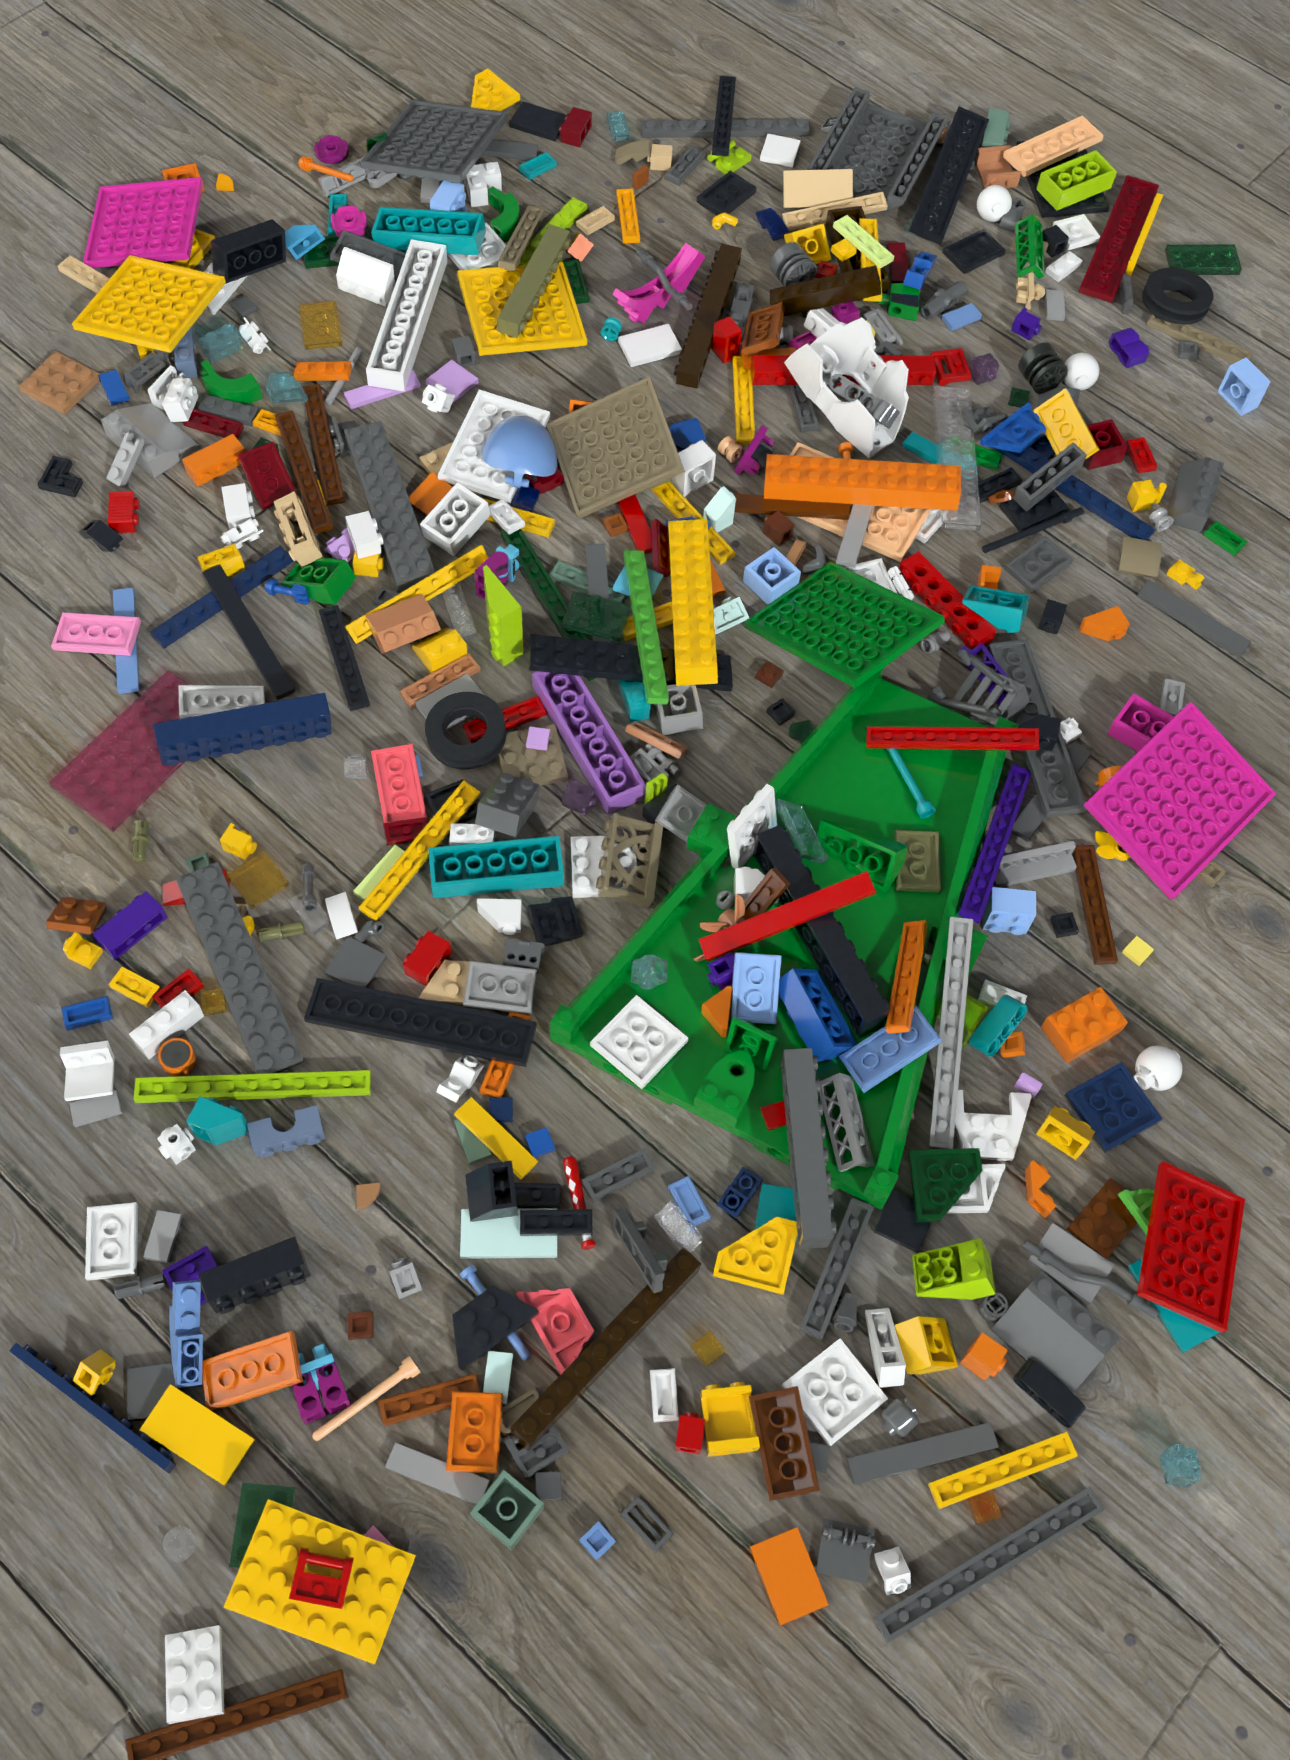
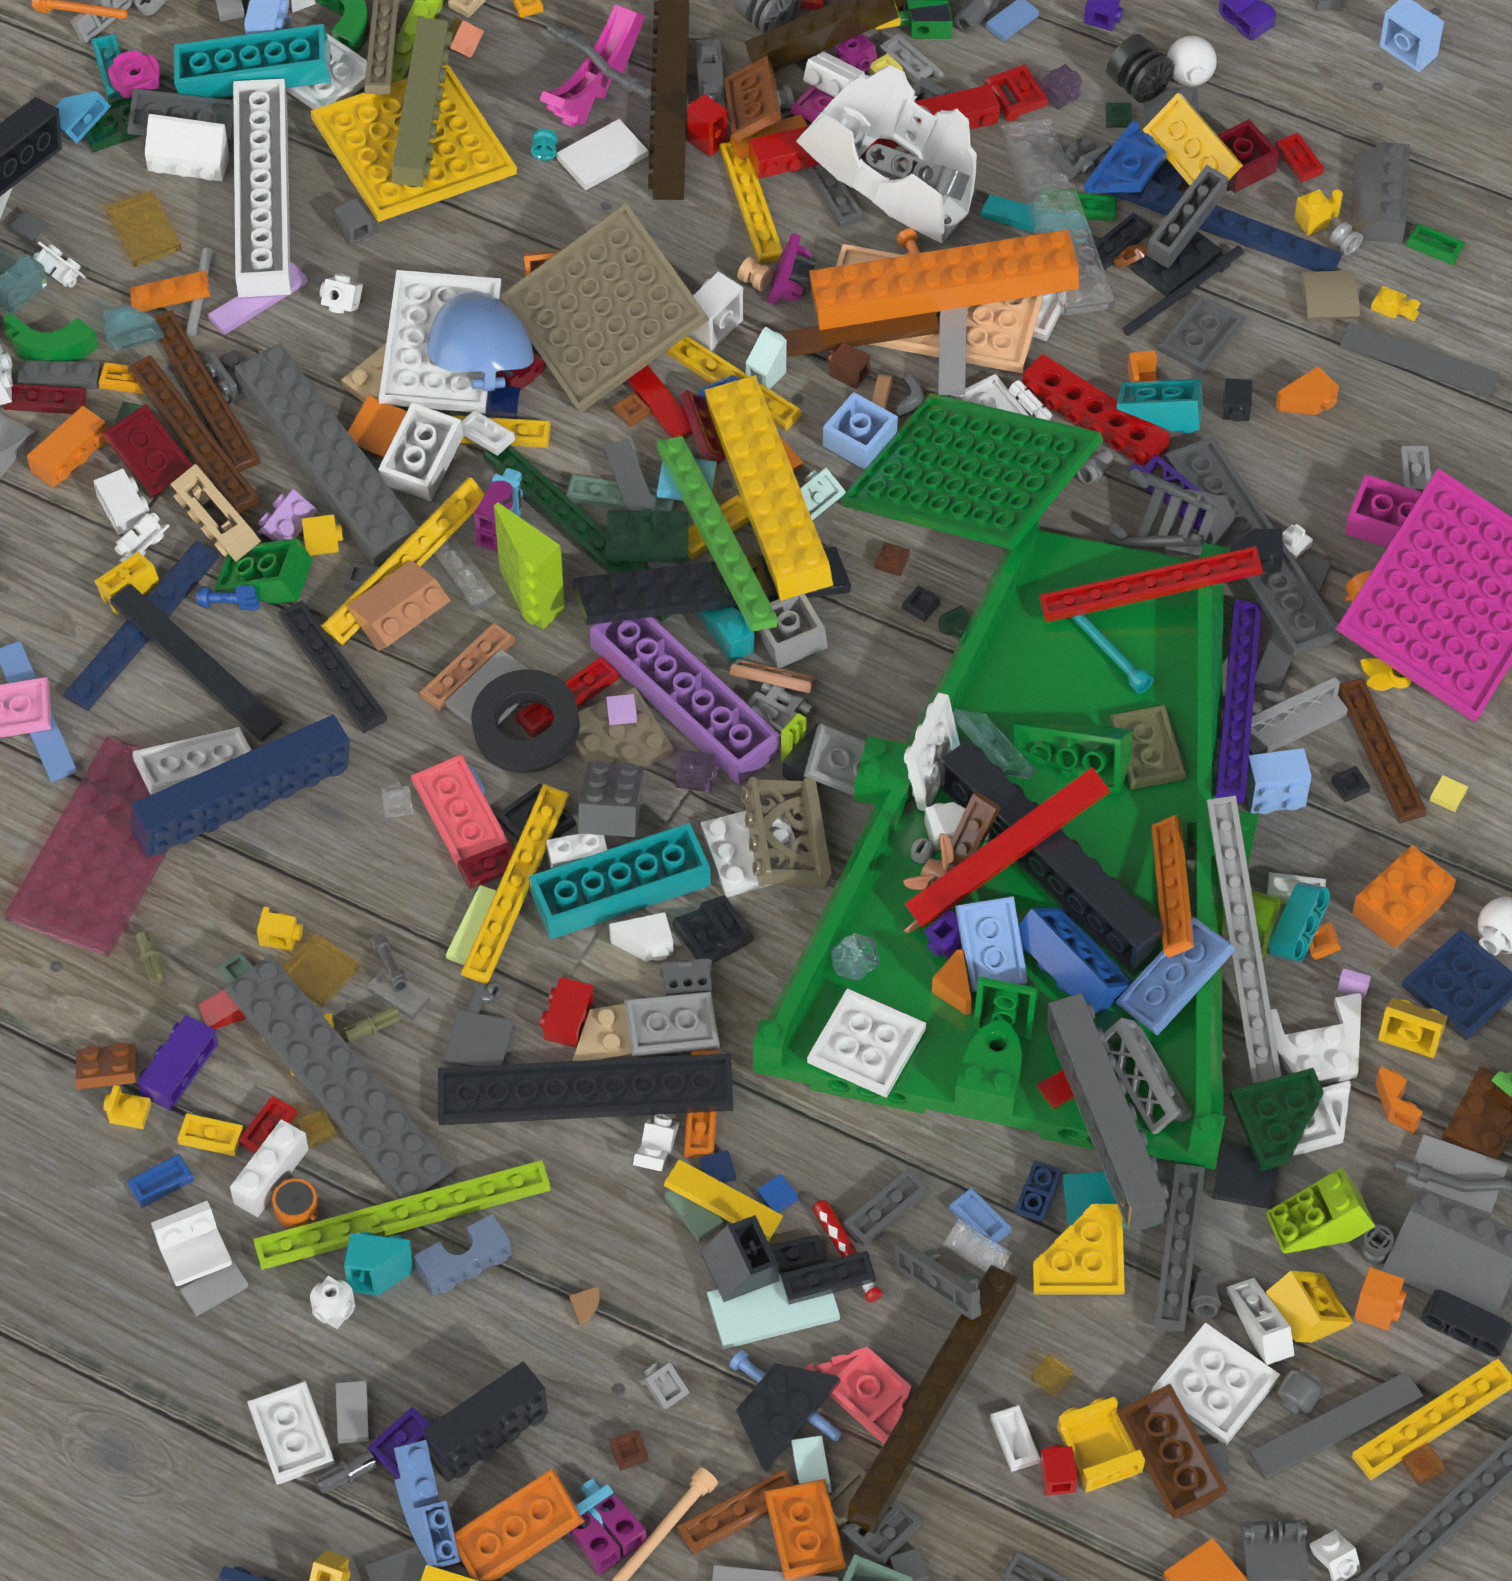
camera: 10 degrees left, 5 degrees down
(341, 915) = (441, 987): white slope -> none
(363, 534) = (309, 500): white brick -> none
(440, 649) = (455, 625): yellow slope -> none
(455, 378) = (352, 260): lavender tile -> none
(576, 281) = (475, 86): dark green tile -> none
(687, 433) = (693, 265): blue slope -> none

